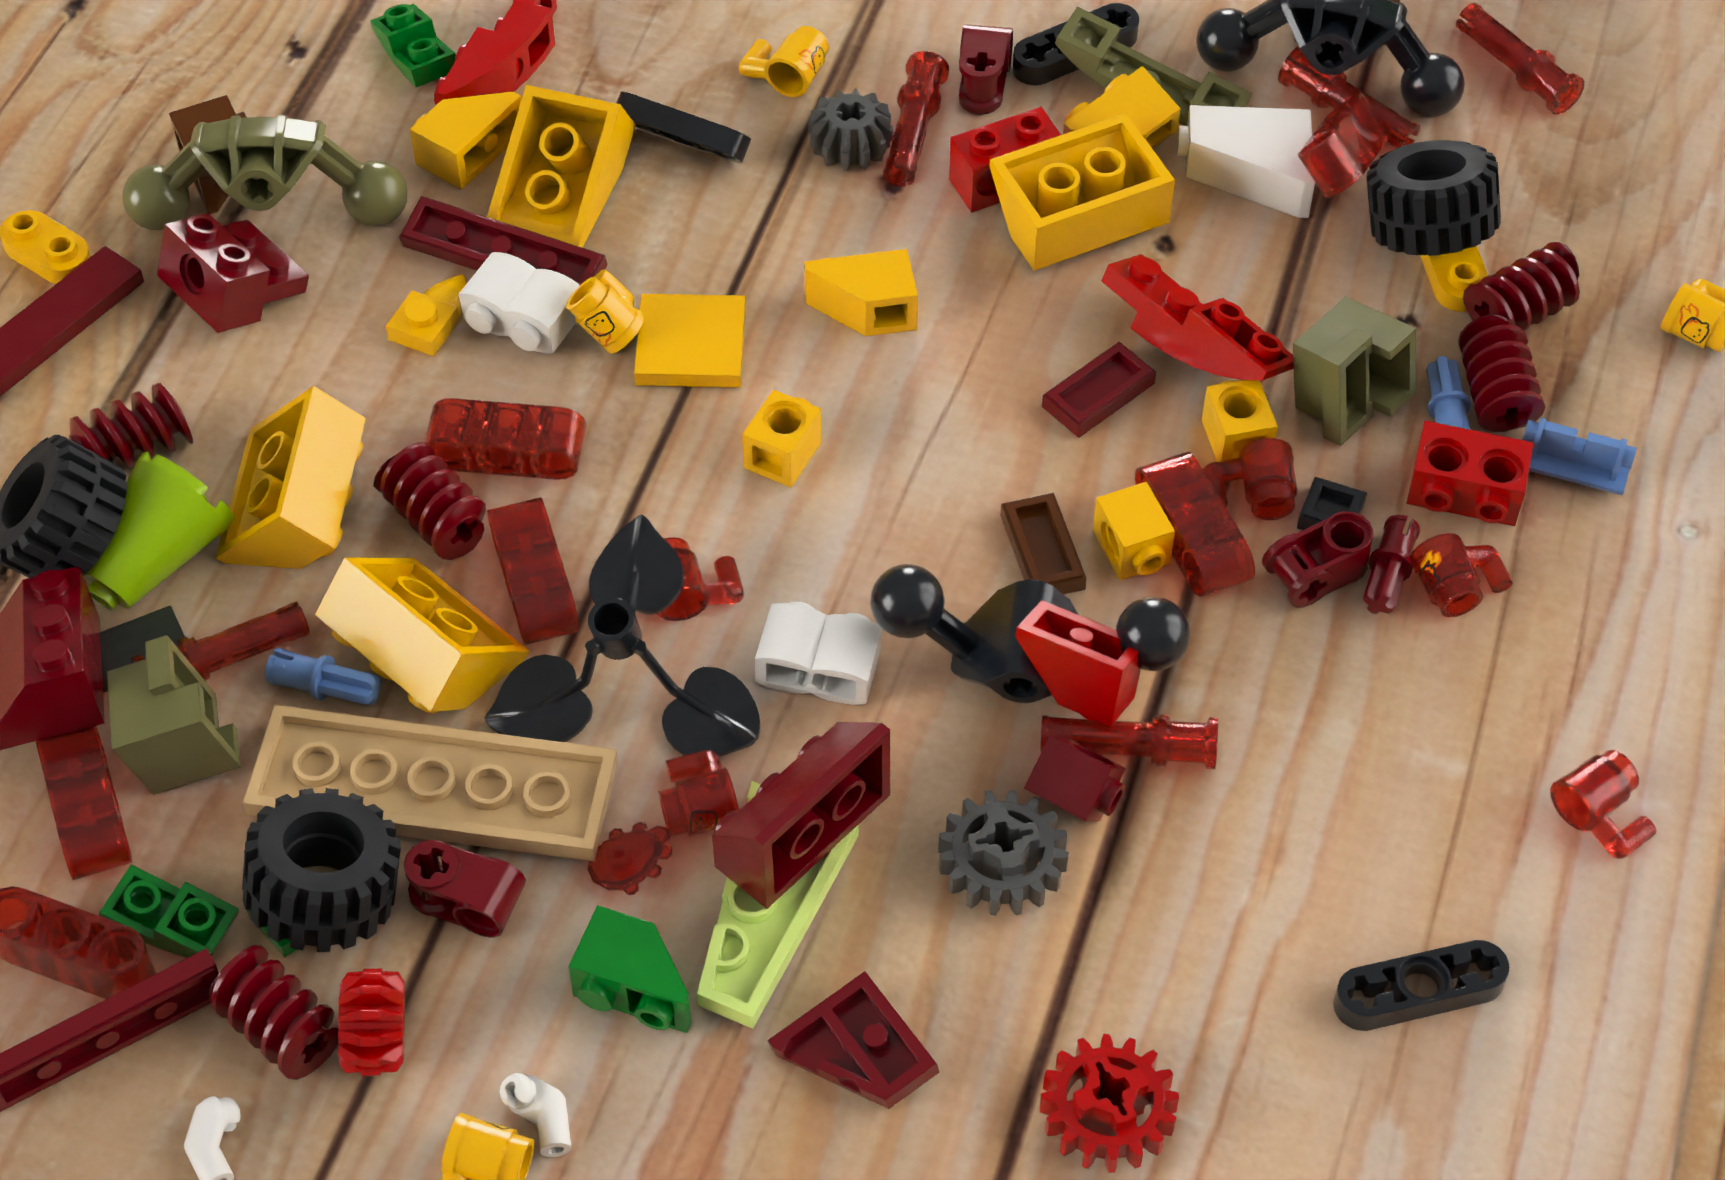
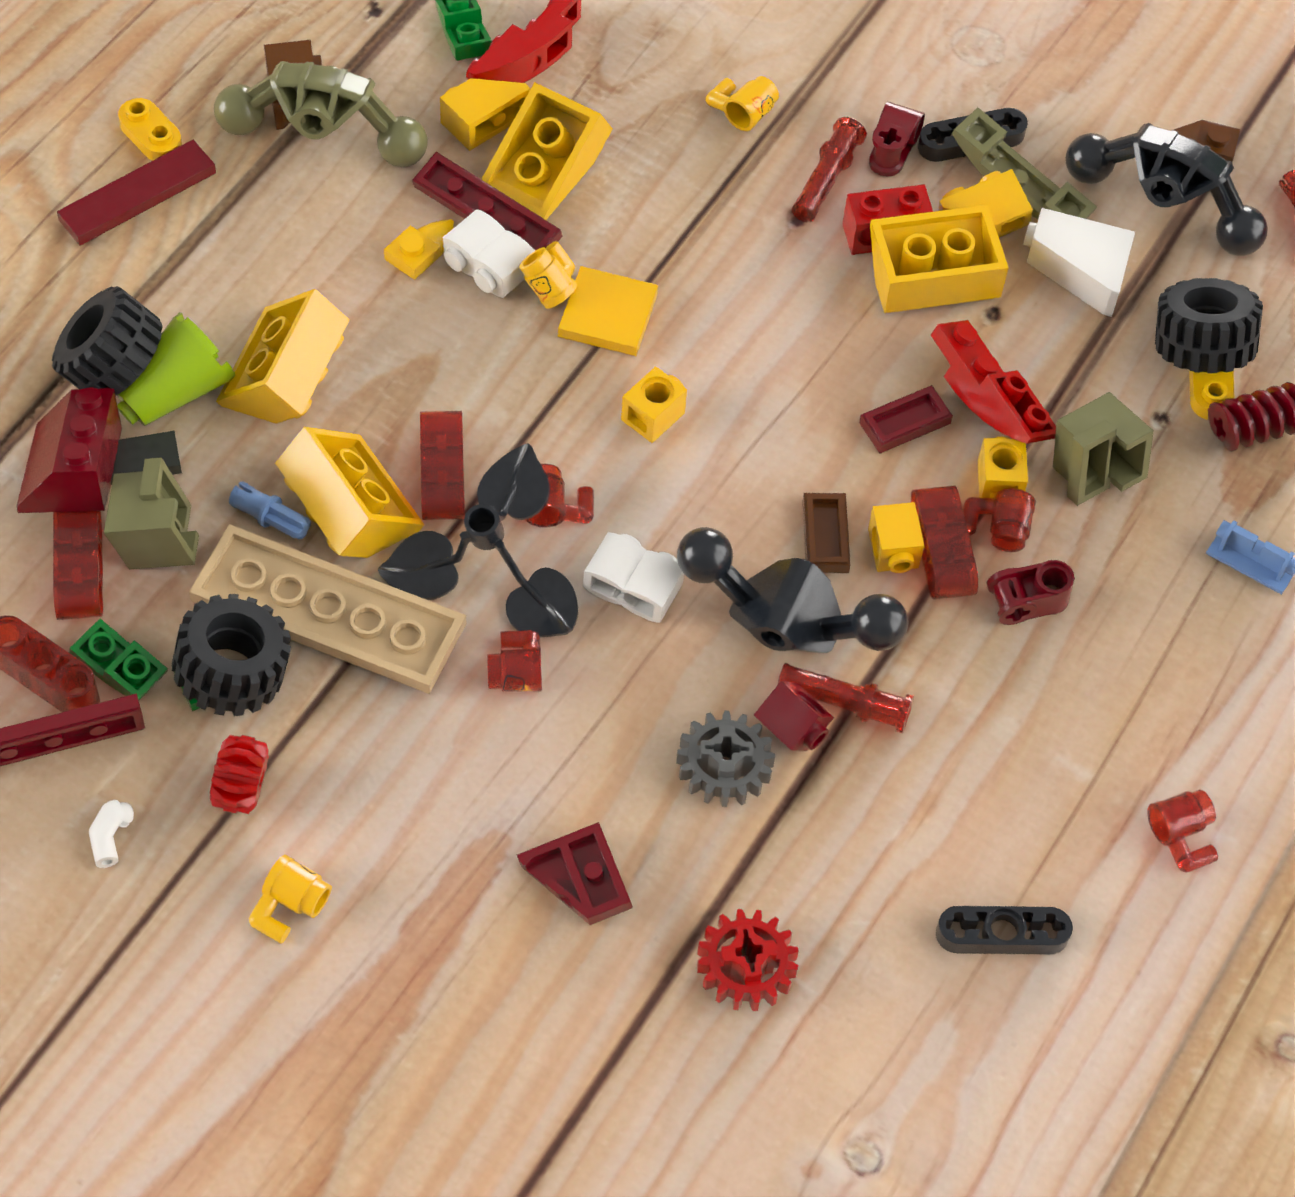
camera: 10 degrees right, 5 degrees up
(133, 428) = (176, 289): dark red piece -> none
(226, 270) = (277, 179): dark red brick -> none
(243, 640) = (217, 469): clear red pin -> none
(274, 1012) = (173, 750): dark red piece -> none
(432, 500) = (382, 394): dark red piece -> none
(464, 889) = (329, 690): dark red piece -> none
(506, 438) = (448, 358): clear red beam -> none
(541, 1106) = (345, 863): white arm -> none
(629, 970) = (431, 779): green slope -> none
(630, 858) = (455, 697): clear red piece -> none
(685, 128) = (648, 139): black beam -> none
(756, 943) = (556, 741): yellowish green wing -> none
(804, 810) = (586, 694): dark red slope -> none
(850, 129) = (776, 168): dark grey gear -> none
(865, 291) = (749, 302): yellow slope -> none
(1080, 662) = (820, 630): red slope -> none
(1327, 499) = (1054, 546): black tile -> none
(1334, 90) = (1173, 230): clear red pin -> none
(1343, 146) = (1151, 267): clear red beam -> none
(1390, 564) = (1083, 608): dark red axle -> none
(1448, 401) = (1169, 494): medium blue axle -> none
(1450, 573) = (1125, 626): clear red piece -> none
(1470, 473) = (1169, 544): red brick -> none
(1500, 374) = (1215, 478): dark red piece -> none

